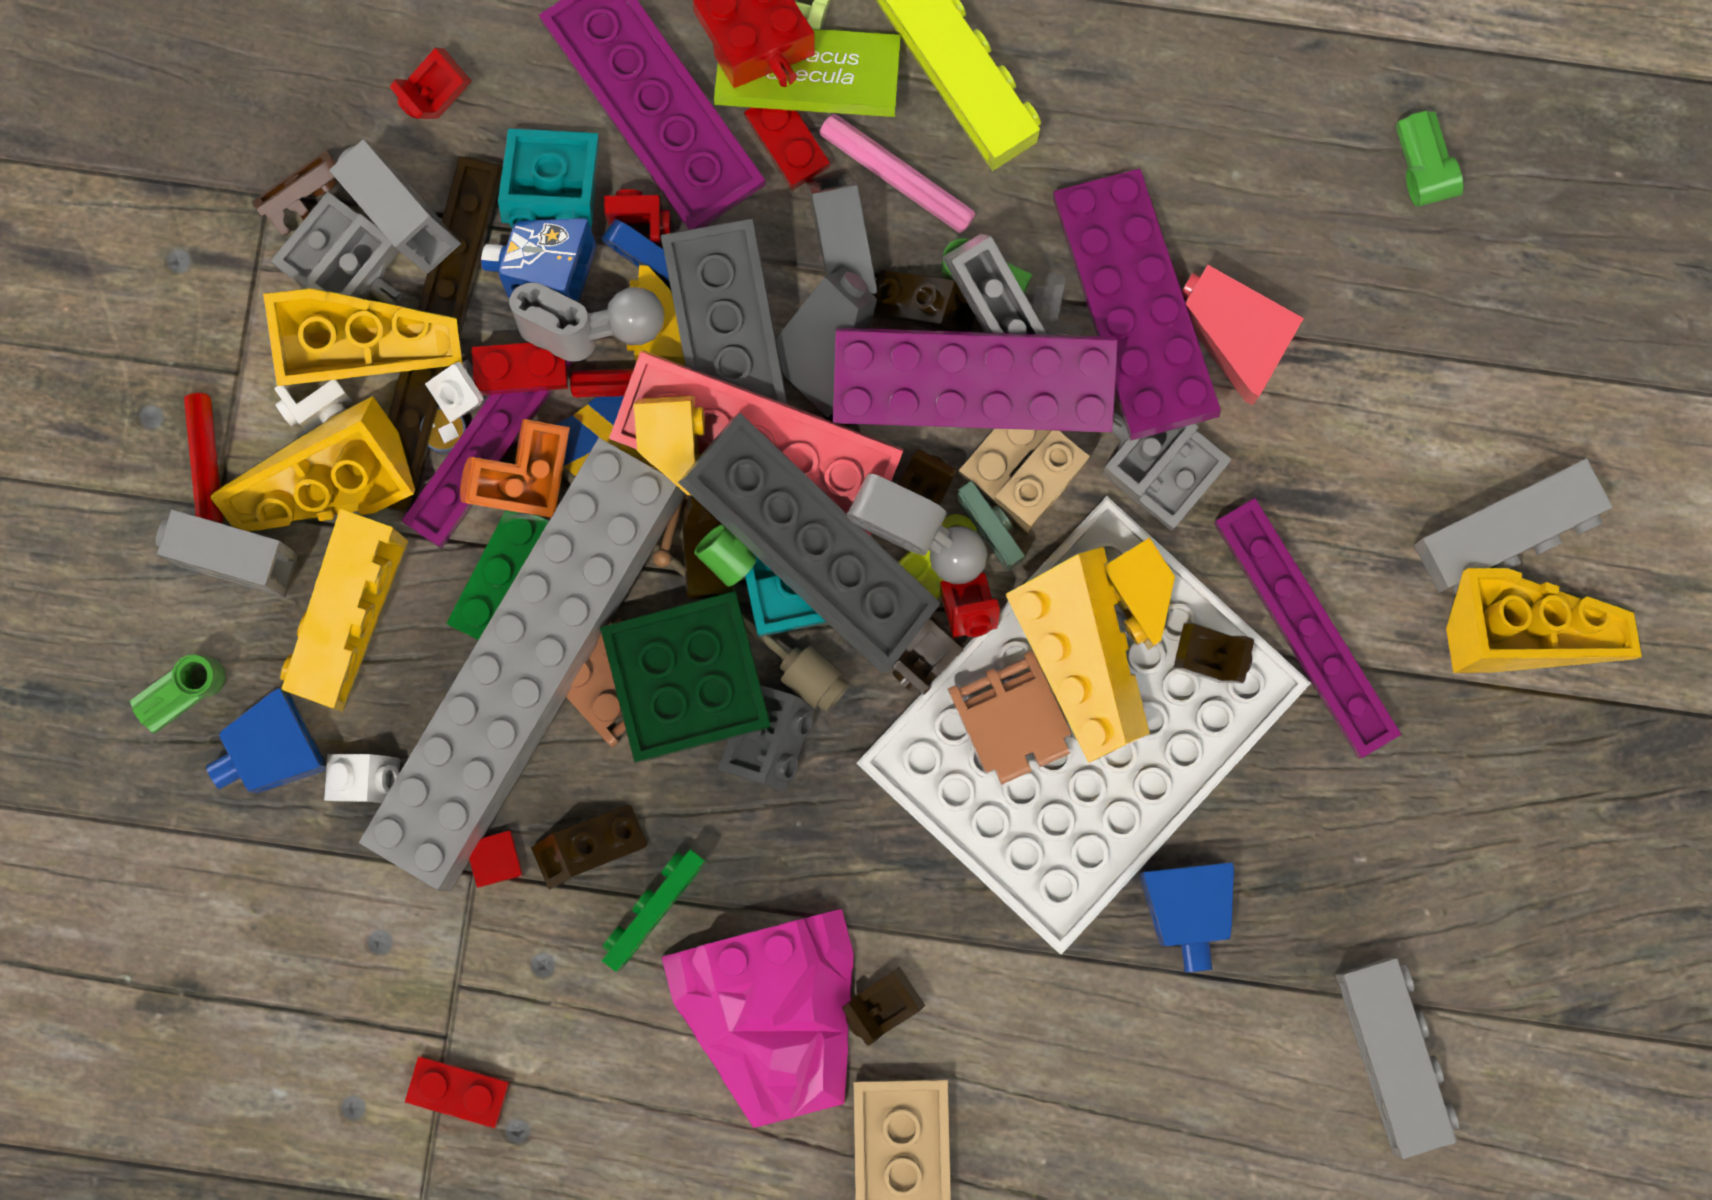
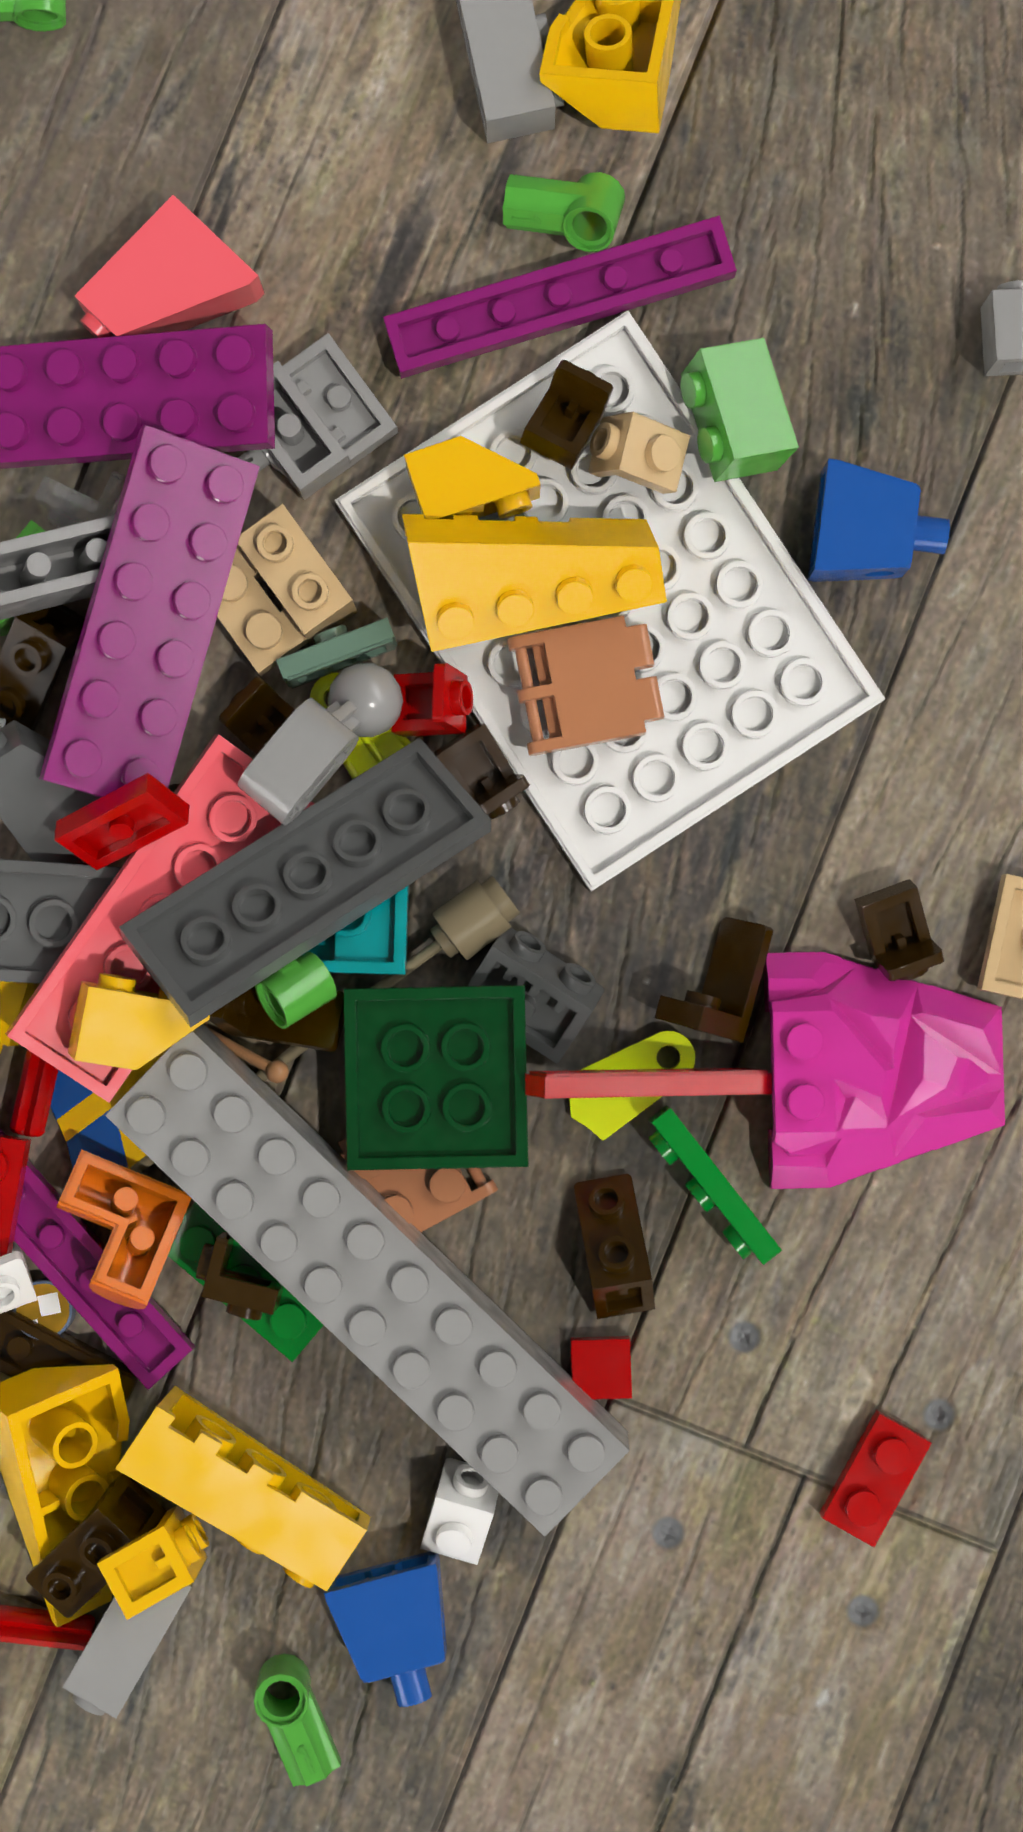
camera: 75 degrees left, 5 degrees up
(278, 511) = (70, 1570): none -> dark brown bracket
(278, 555) = (156, 1562): none -> yellow bracket
(490, 573) = (245, 1293): none -> dark brown bracket
(716, 826) = (609, 1114): none -> neon yellow piece
(719, 839) = (647, 1082): none -> tile
(808, 886) = (729, 984): none -> dark brown bracket
(818, 396) = (122, 822): none -> red plate
(1201, 716) = (639, 451): none -> tan bracket
(1253, 784) = (738, 410): none -> brick
(1375, 627) = (579, 210): none -> bright green piece

